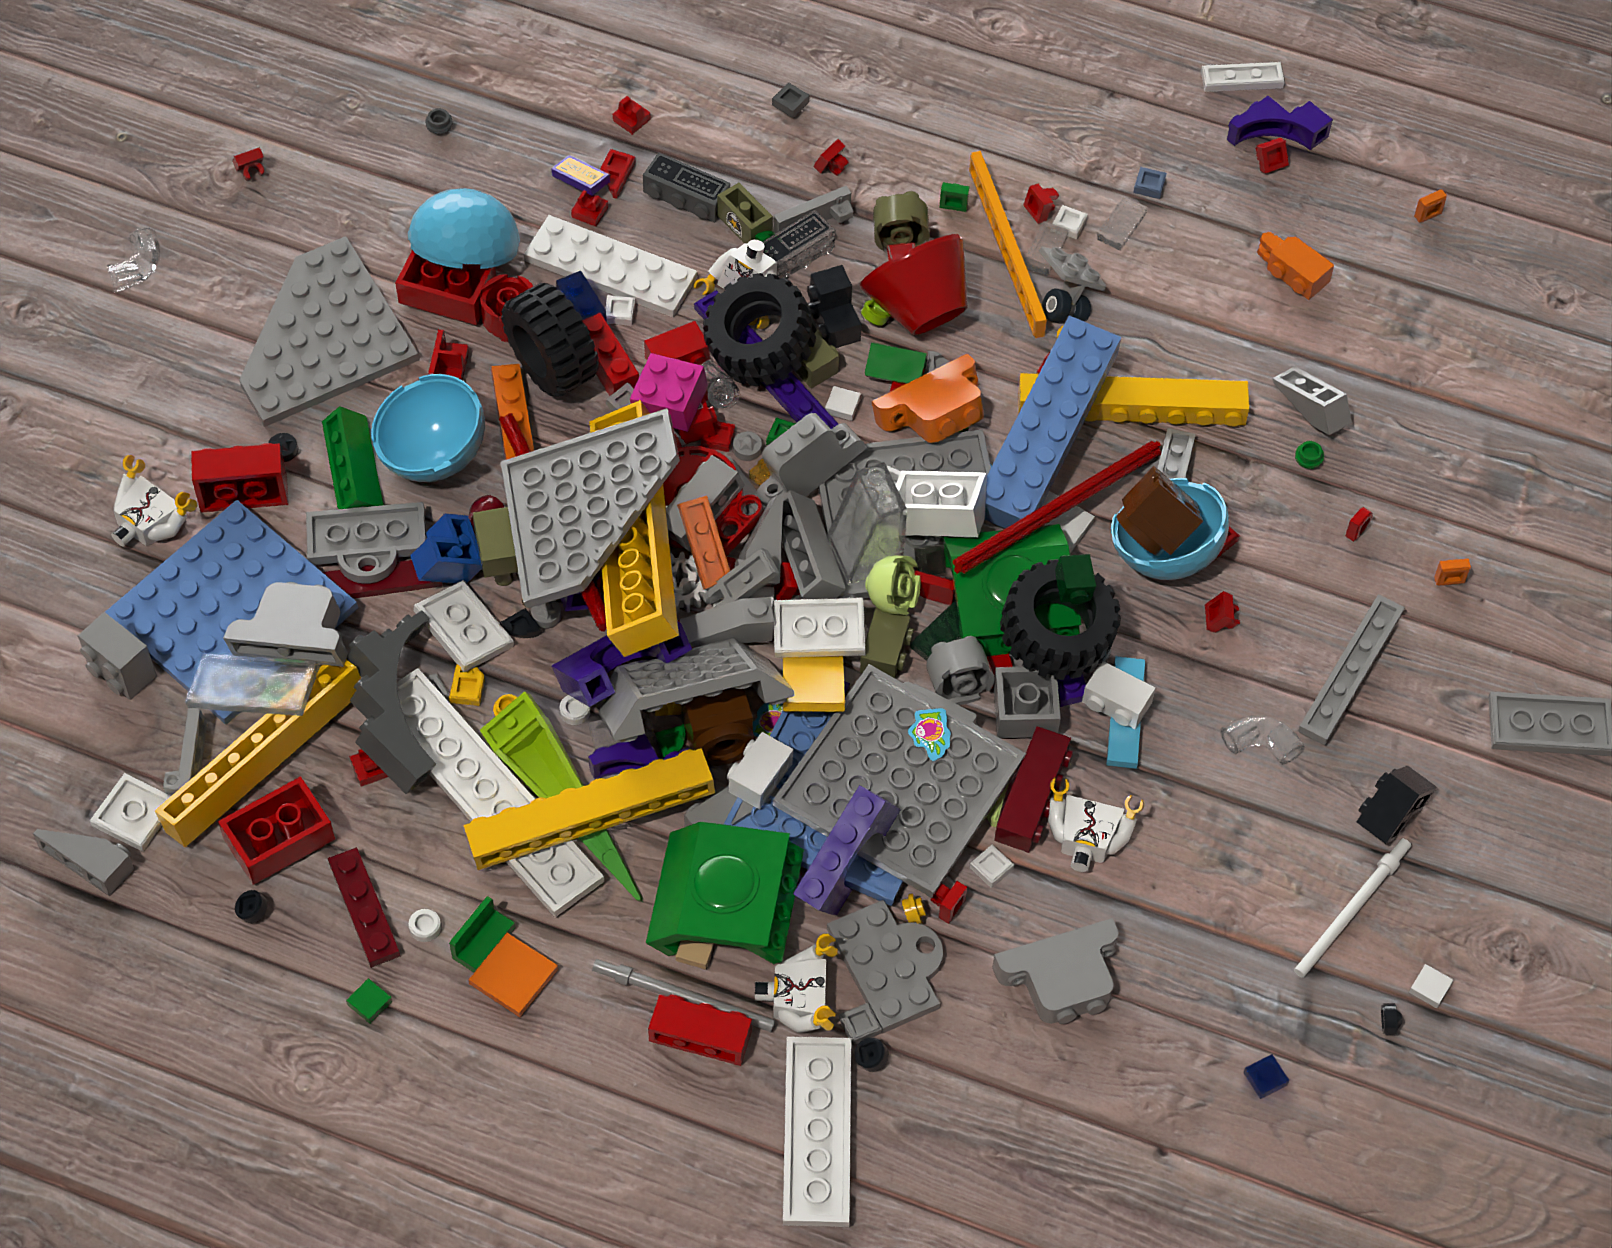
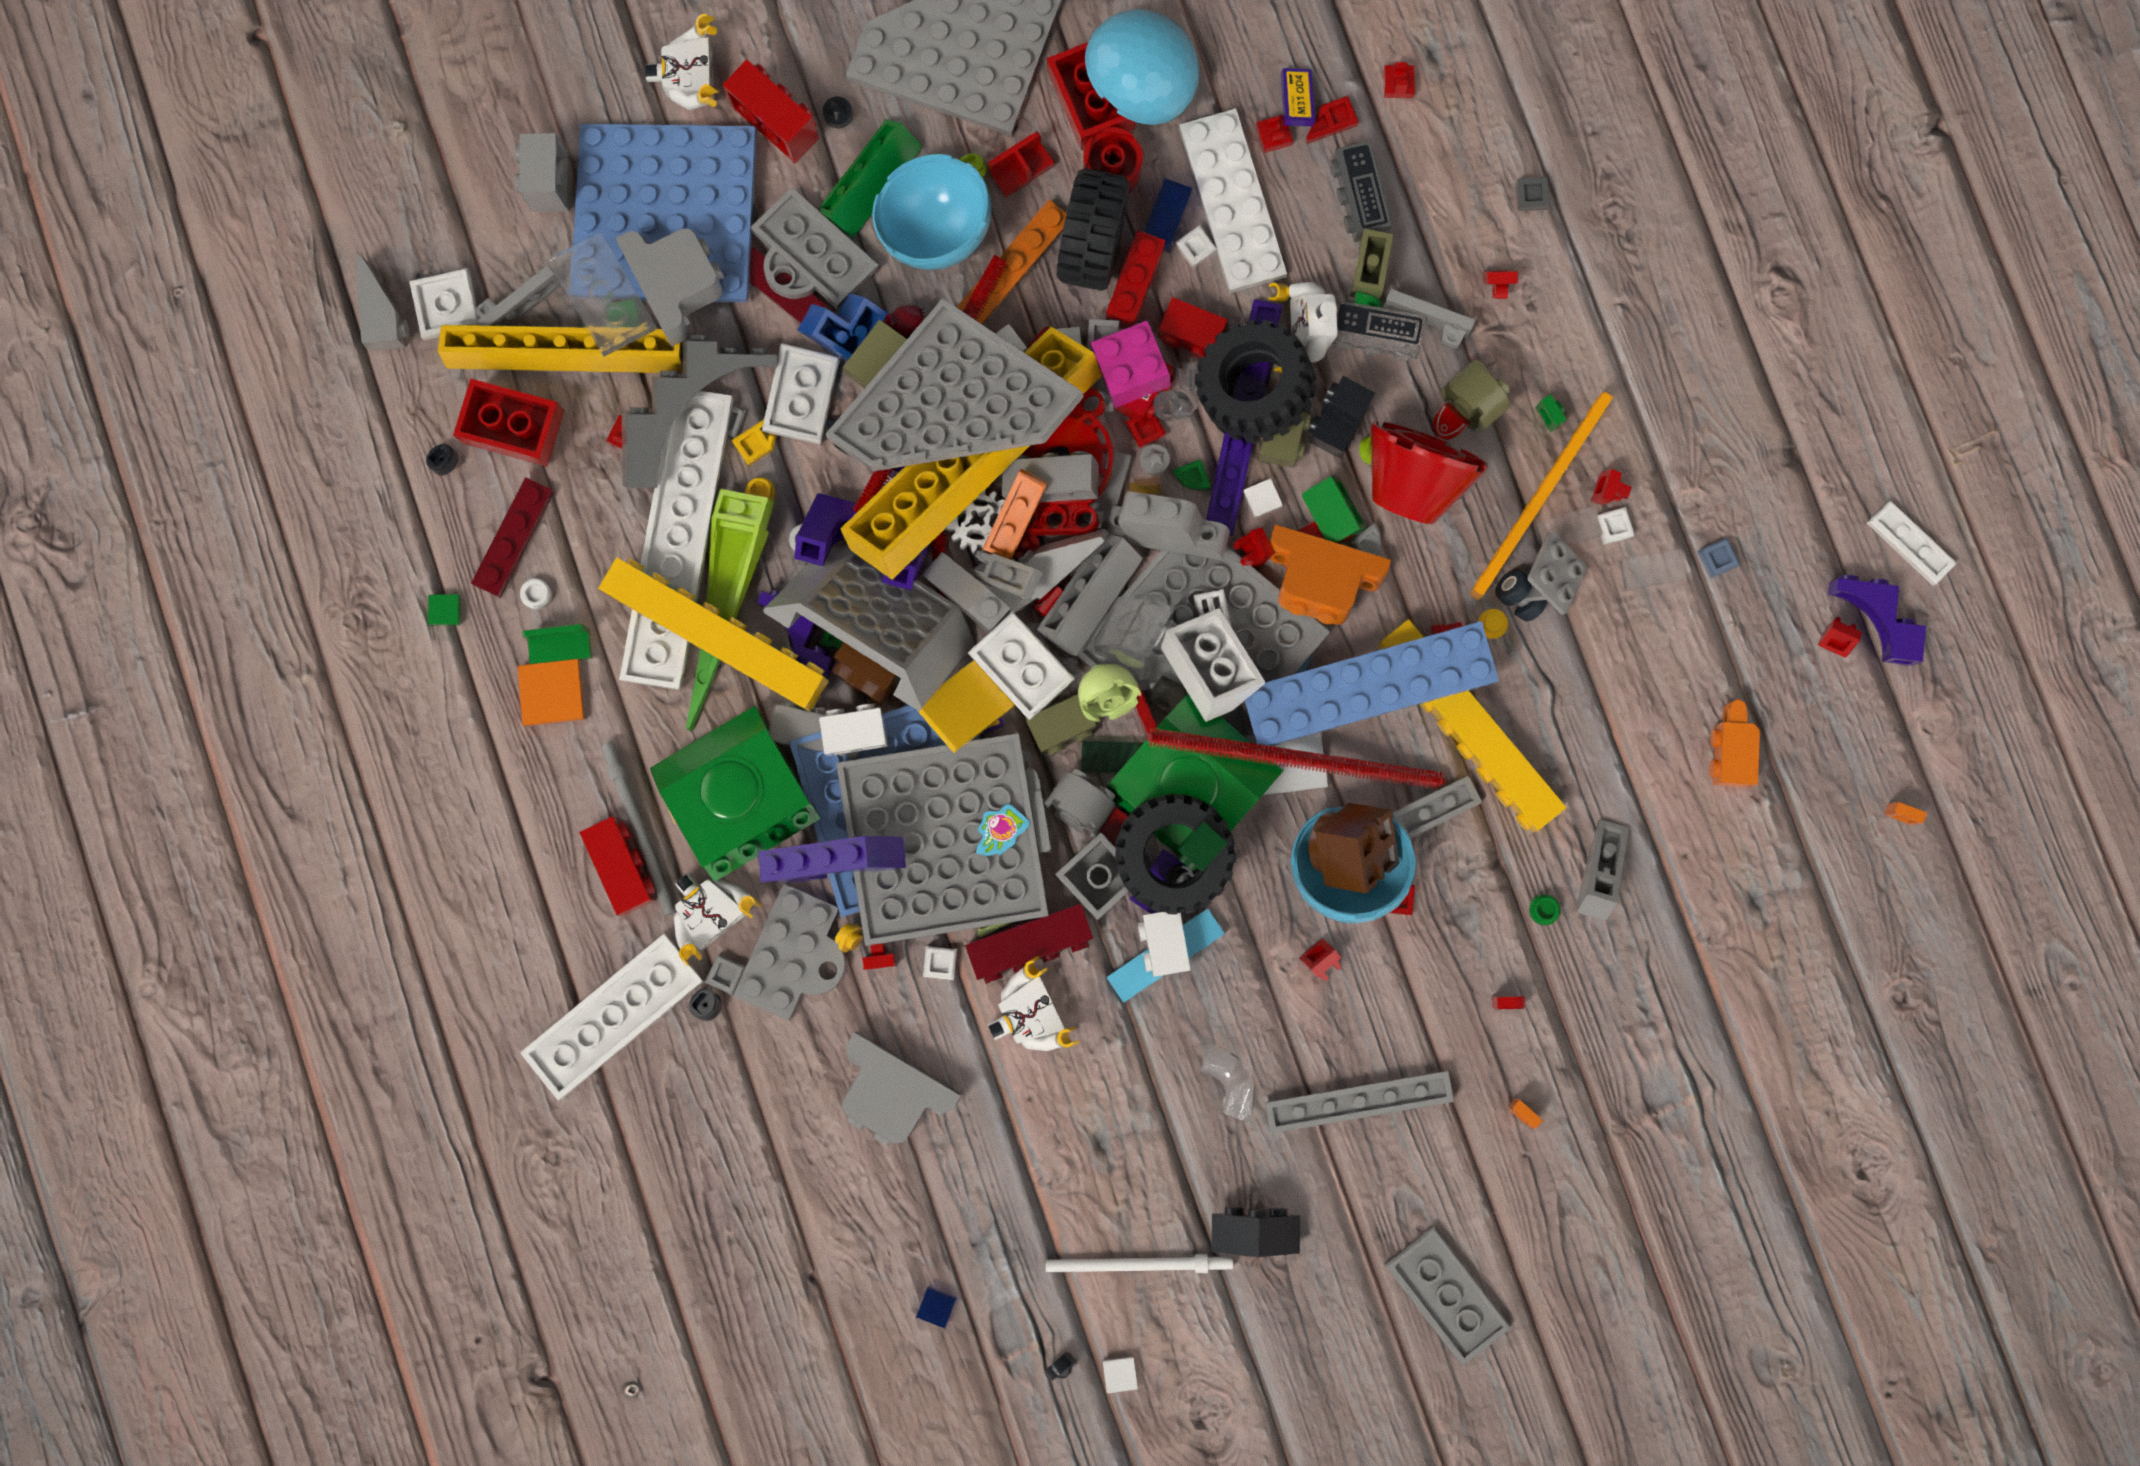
camera: 55 degrees right, 25 degrees up
(876, 427) = (1255, 547): none -> red tile

